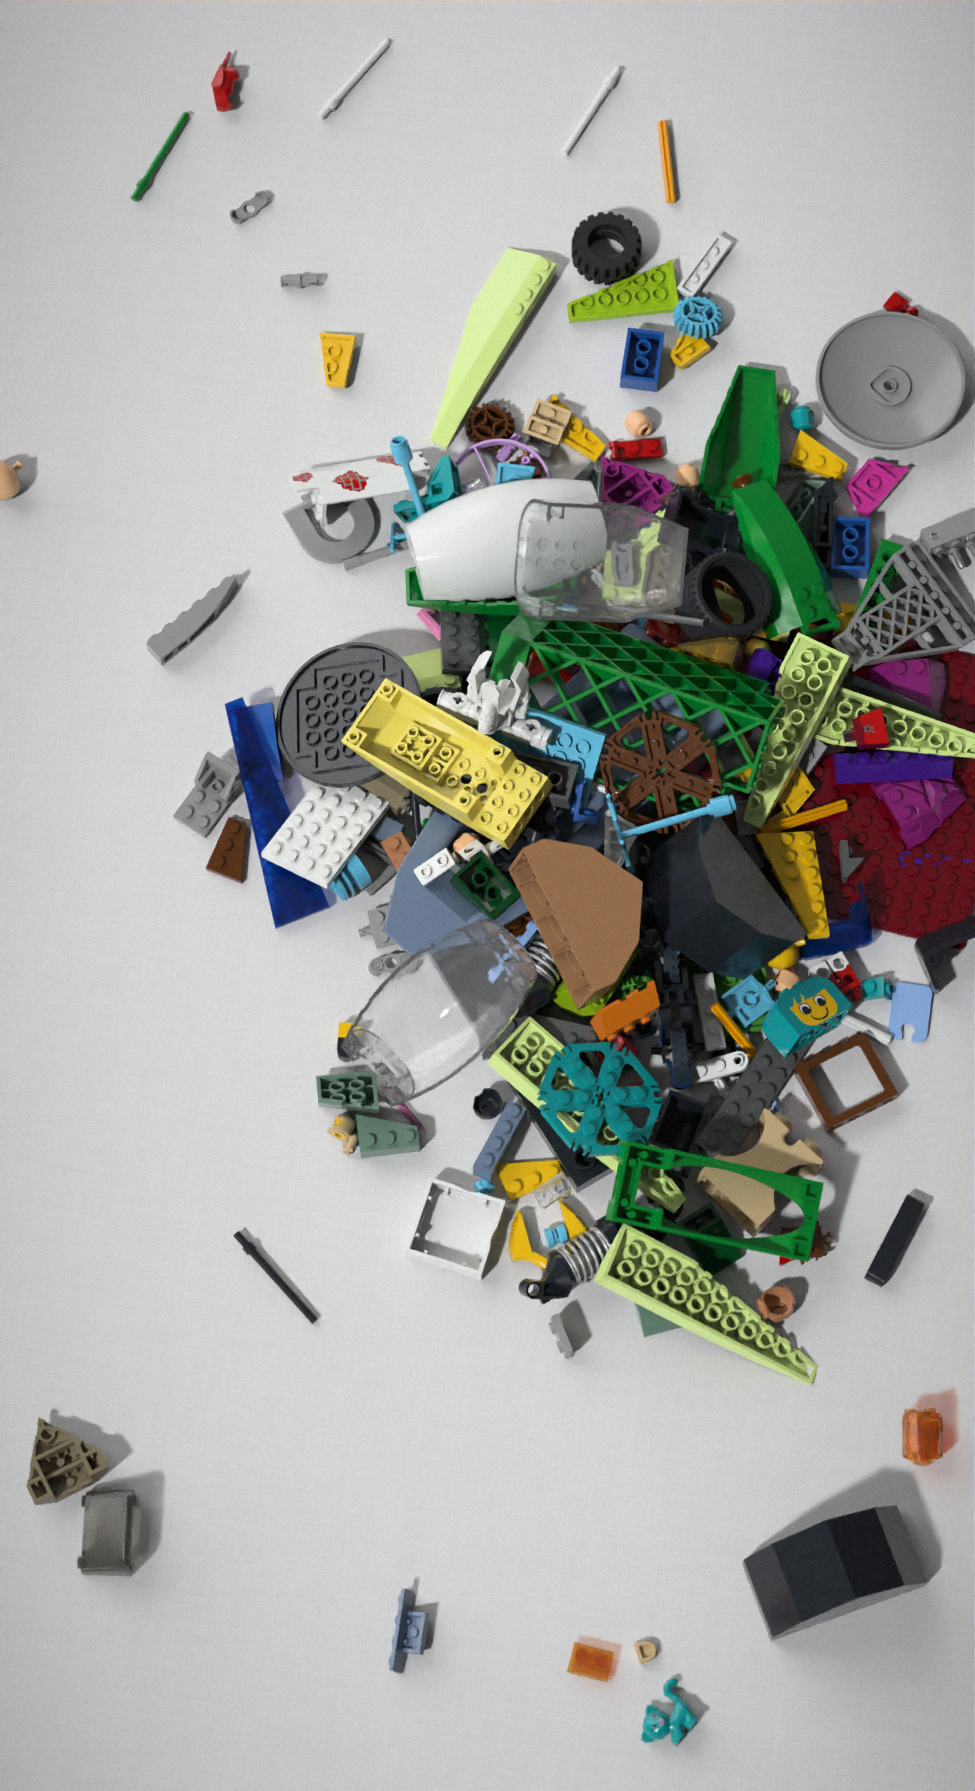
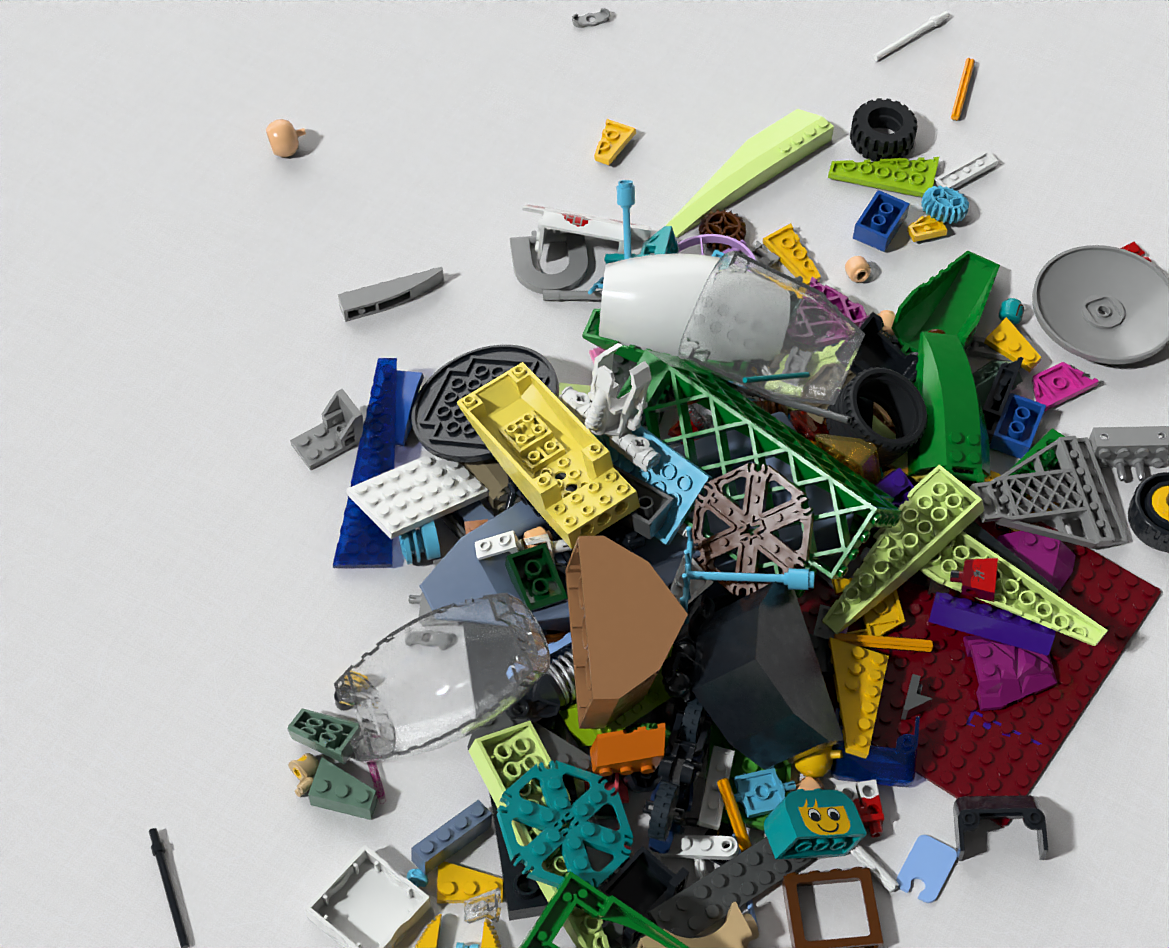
camera: 20 degrees right, 15 degrees down
(228, 853) = (324, 488): reddish brown wing -> none
(299, 281) = (607, 78): light grey pin -> none
(488, 1104) = (457, 797): black hair -> none
(548, 422) = (776, 240): tan slope -> none
(587, 815) = (658, 540): blue bracket -> none
(618, 598) = (776, 377): none -> teal axle
(636, 450) = (854, 291): red plate -> none
(782, 399) = (998, 291): yellowish green plate -> none
(813, 755) = (913, 588): light grey plate -> none
(877, 989) = (900, 831): teal bracket -> none

